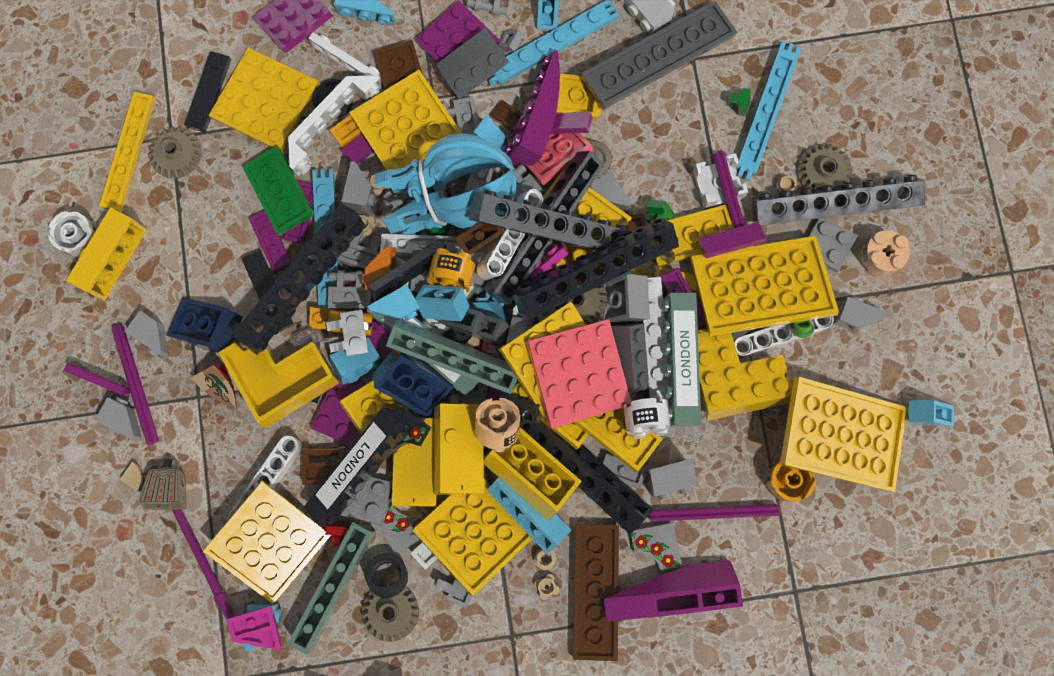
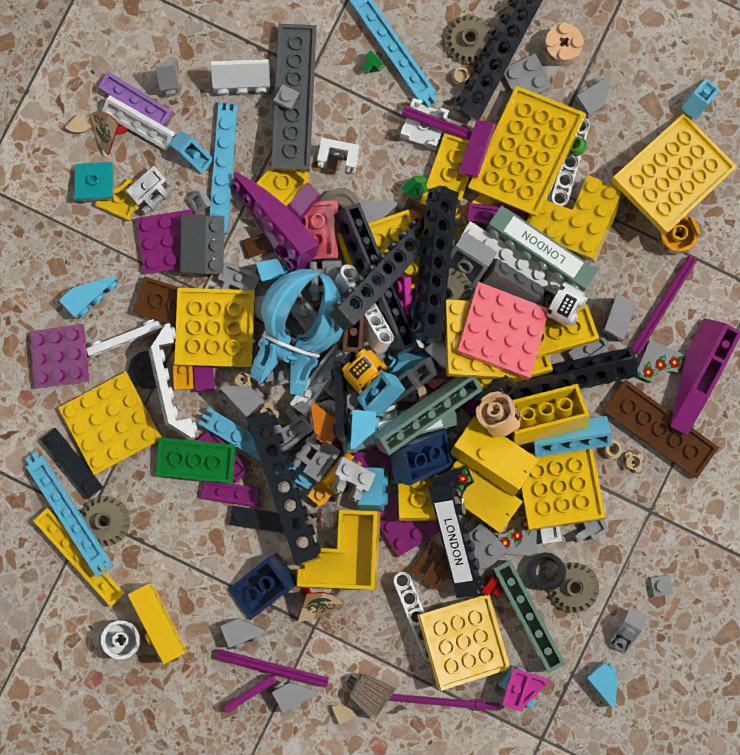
camera: 65 degrees left, 5 degrees up
(157, 116) = (68, 513): none -> medium azure hinge
(635, 112) = (338, 149): none -> white panel
(654, 45) = (286, 97): none -> light grey plate

